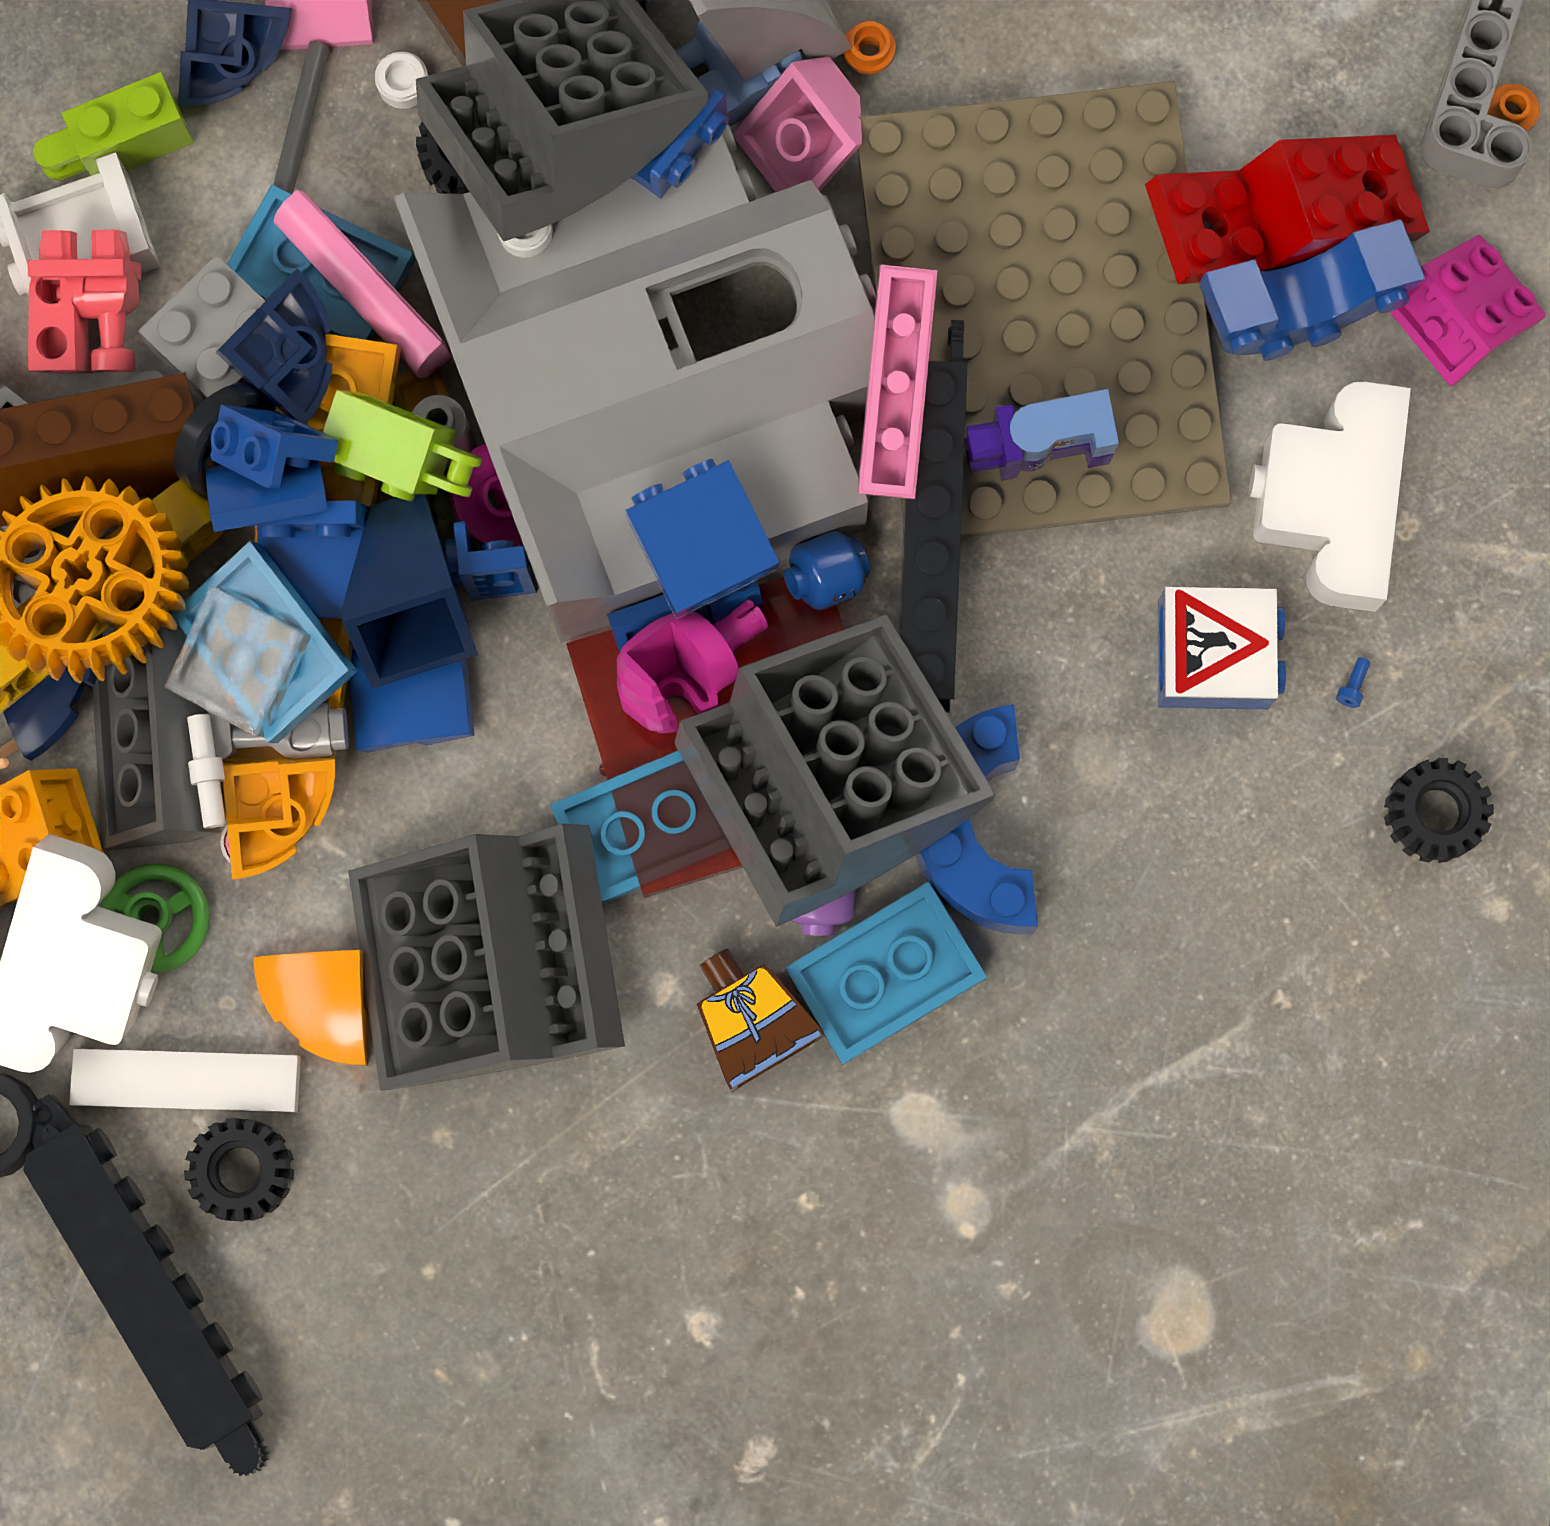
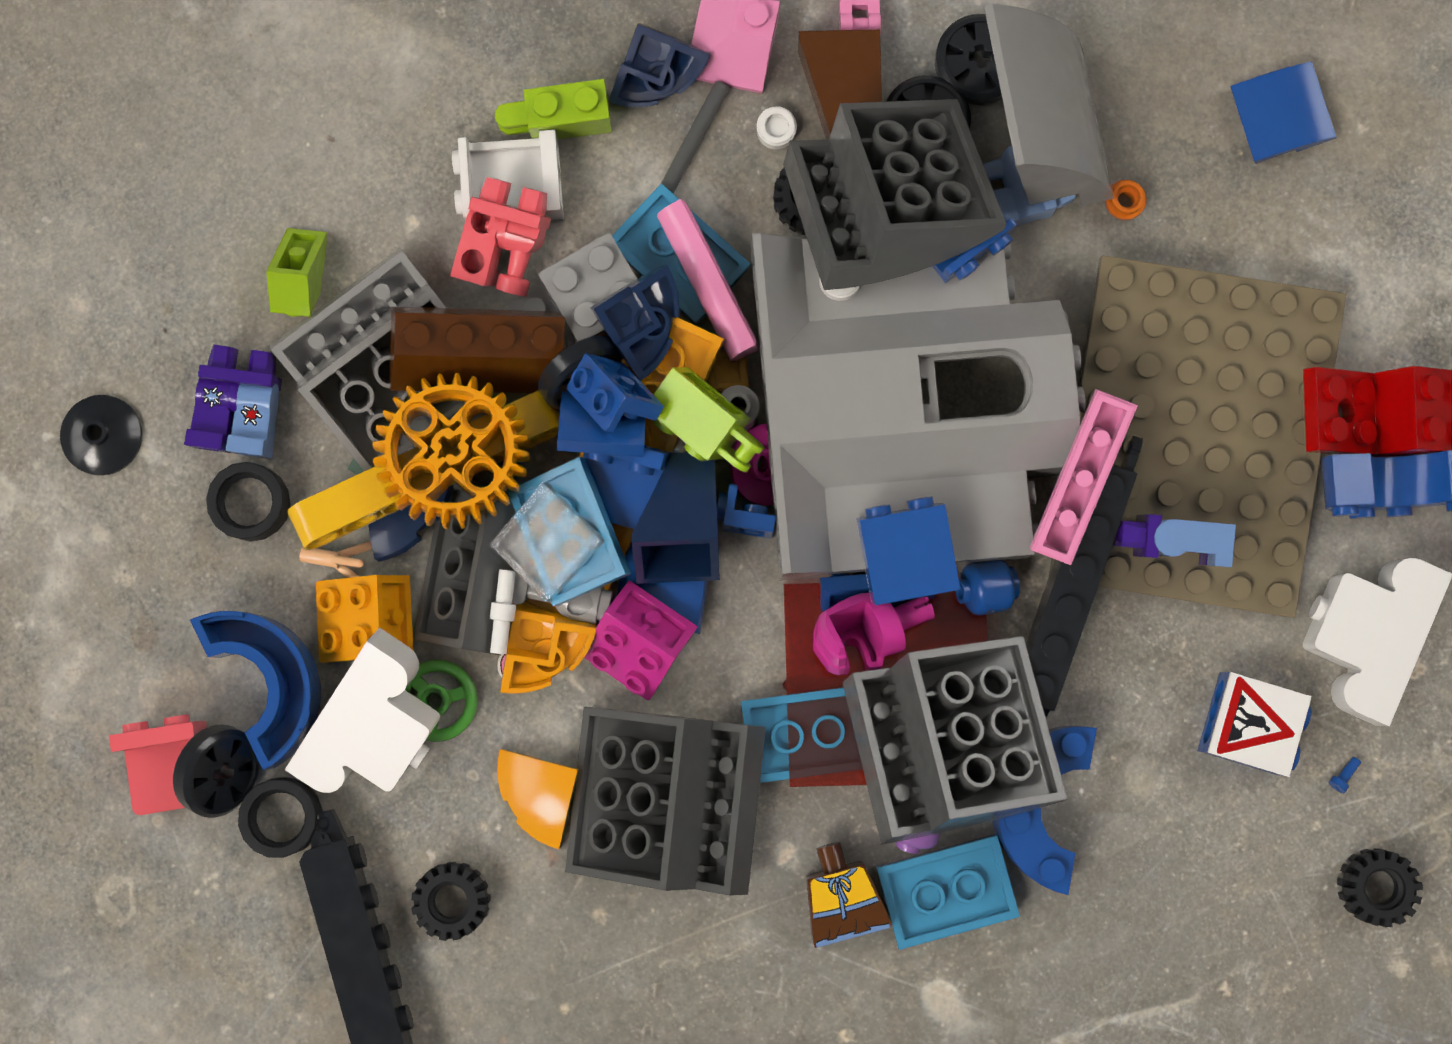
camera: 15 degrees right, 5 degrees up
(185, 1080) = (429, 824): white tile -> none
(393, 763) = (639, 640): none -> dark pink bracket
(803, 125) = (1062, 251): bright pink slope -> none

